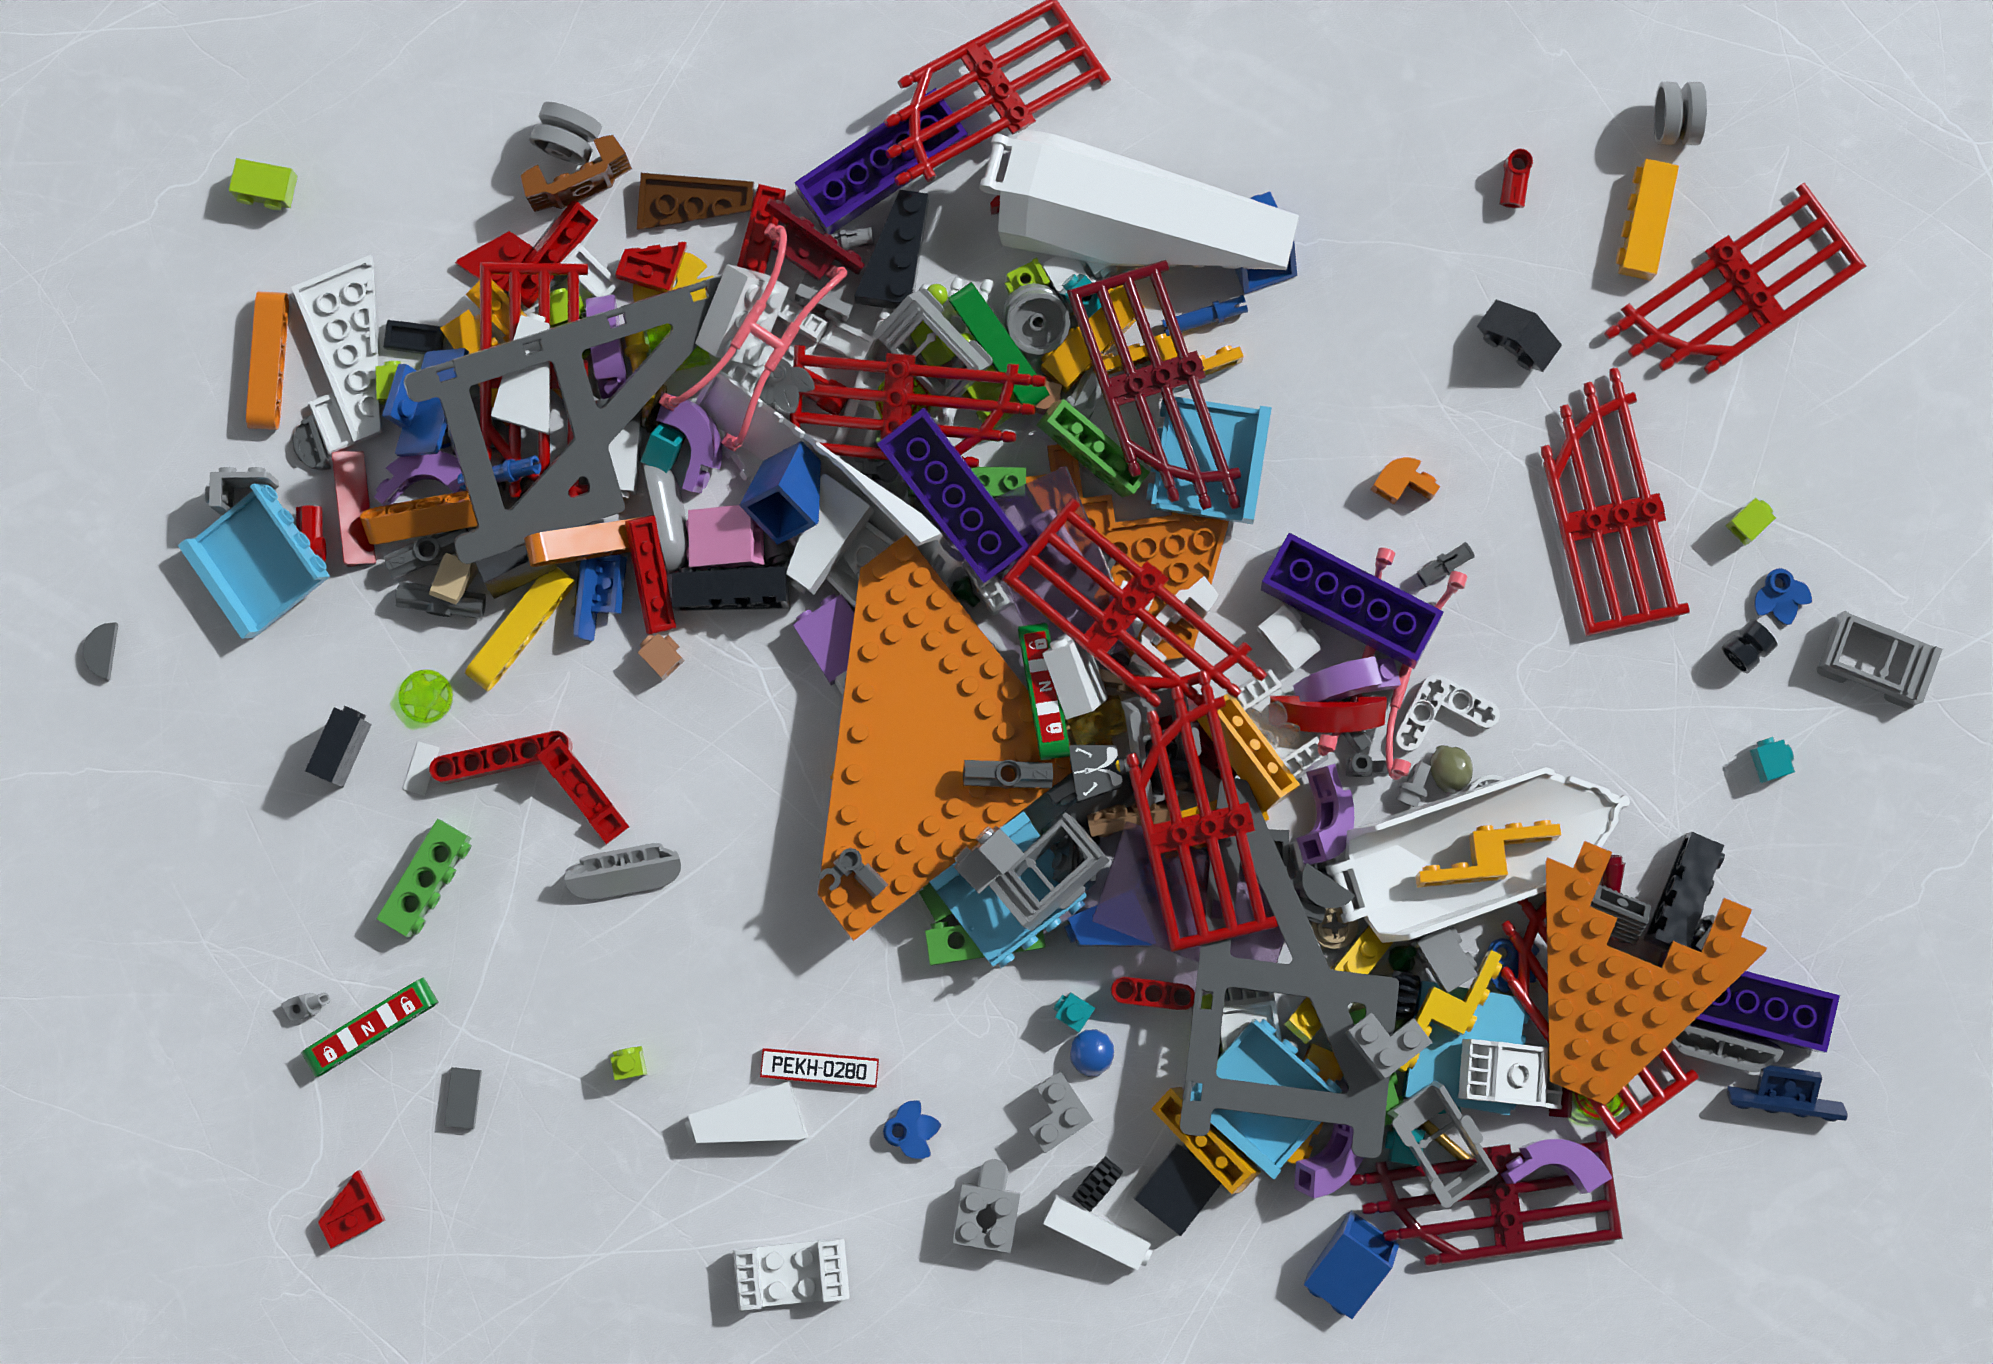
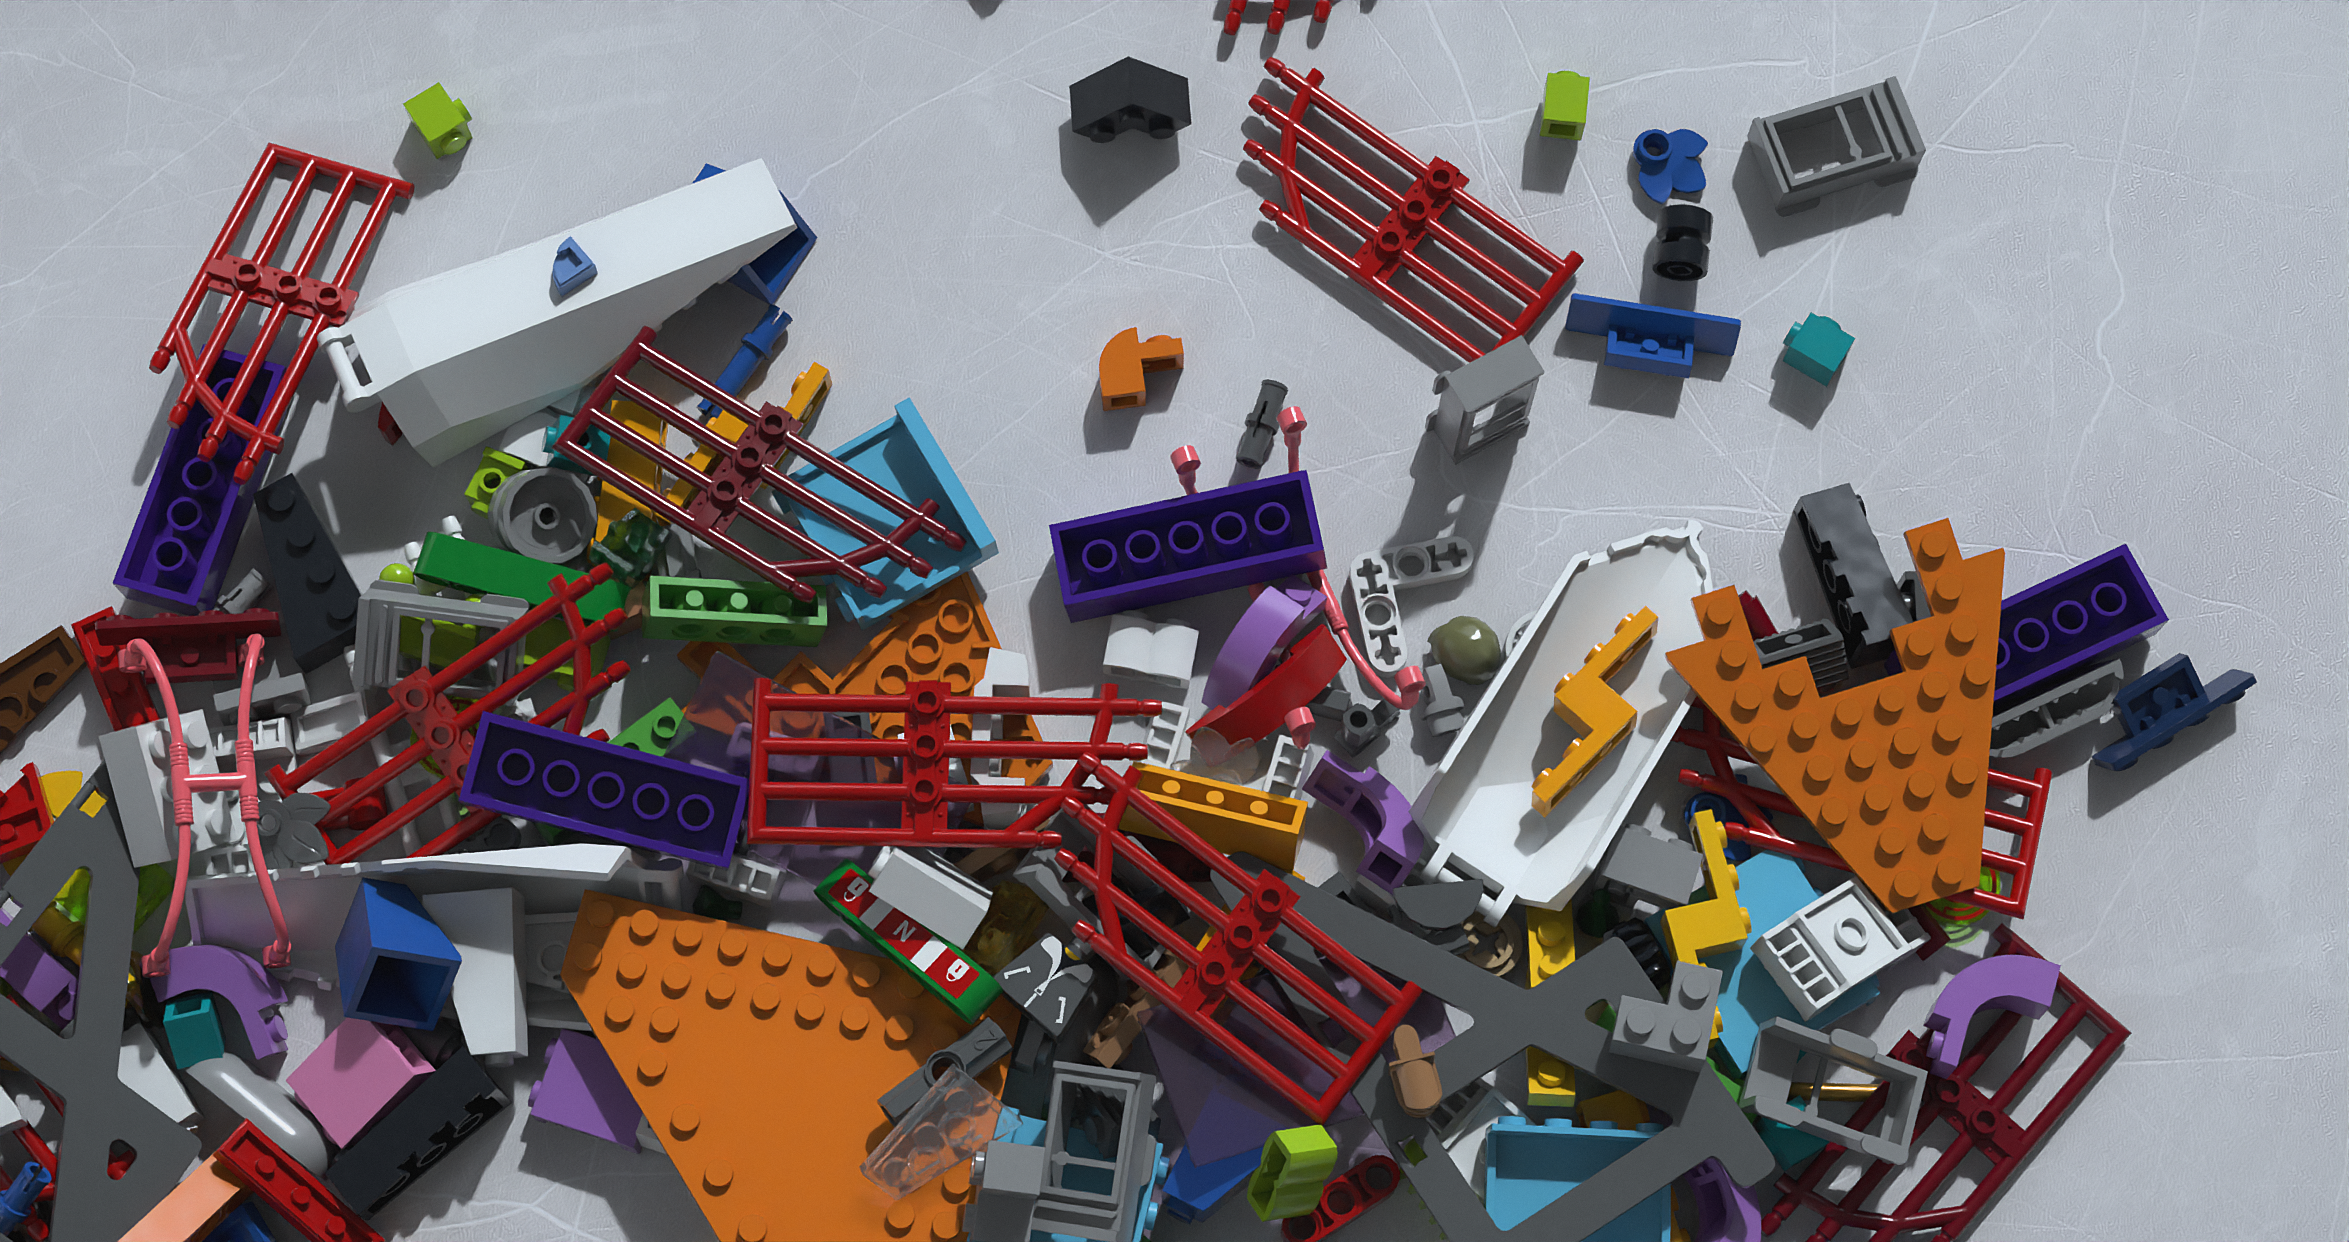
camera: 40 degrees left, 10 degrees down
(981, 801) = (938, 1133): none -> clear wing
(1066, 372) = (630, 547): none -> clear green hand
(1138, 962) = (1292, 1172): none -> lime brick
(1151, 55) = (439, 120): none -> lime brick
(1152, 200) = (571, 267): none -> medium blue tile
(1236, 965) = (1414, 1075): none -> medium nougat arm
(1568, 644) = (1504, 374): none -> light grey piece
(1689, 683) = (1650, 335): none -> blue bracket

